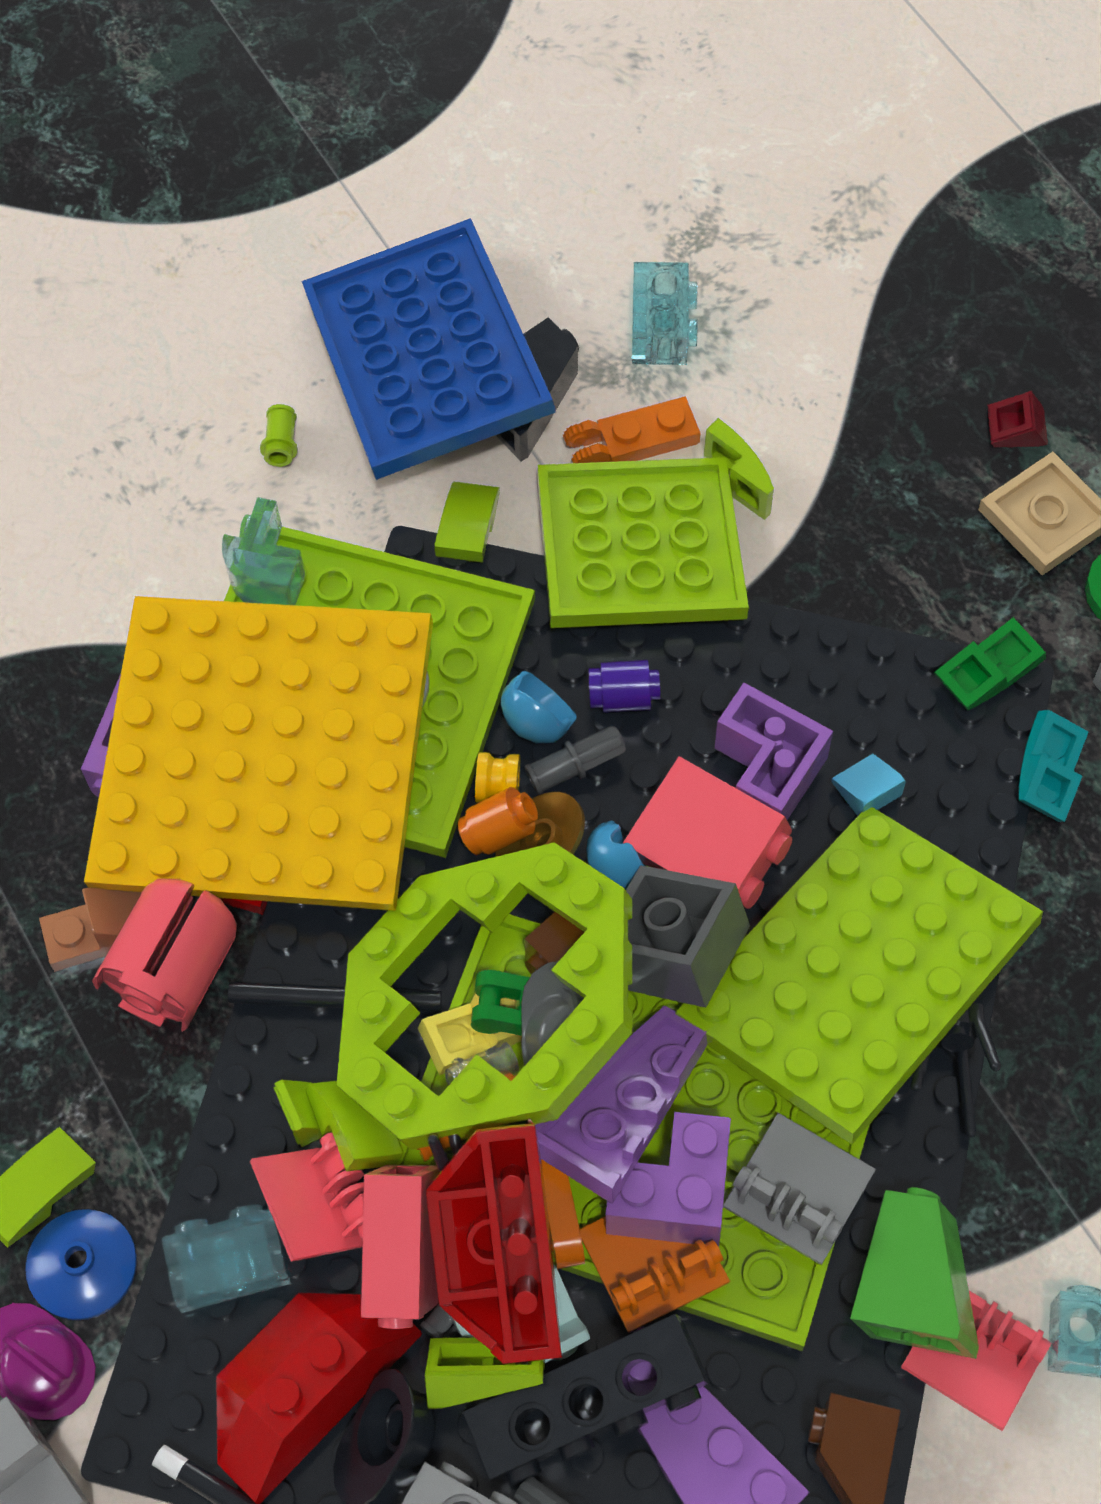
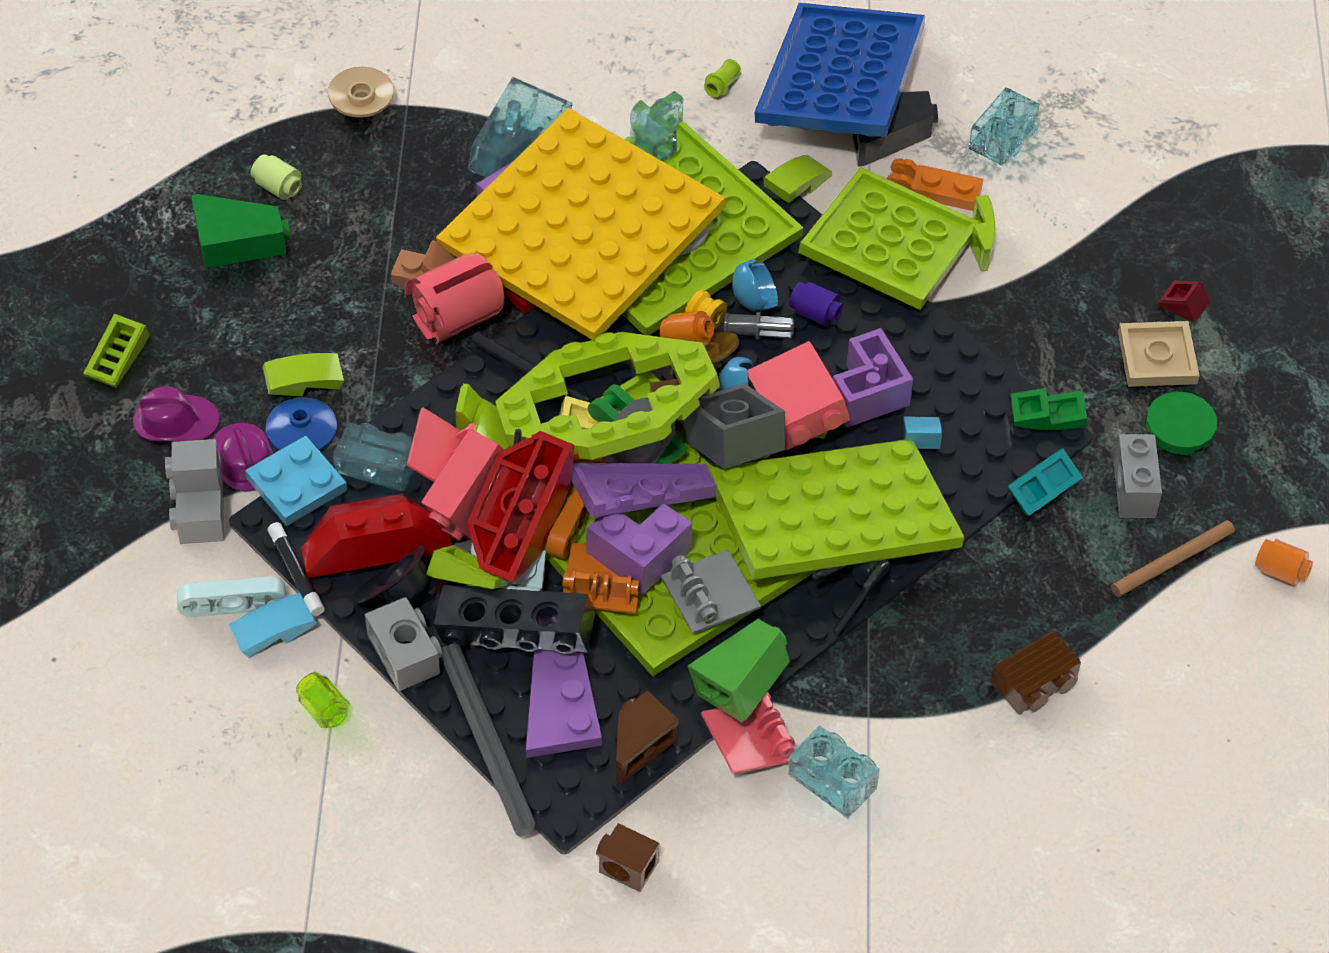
camera: 30 degrees right, 10 degrees down
(75, 656) = (513, 125): none -> clear light blue wedge
(138, 1362) = (296, 480): none -> medium azure plate

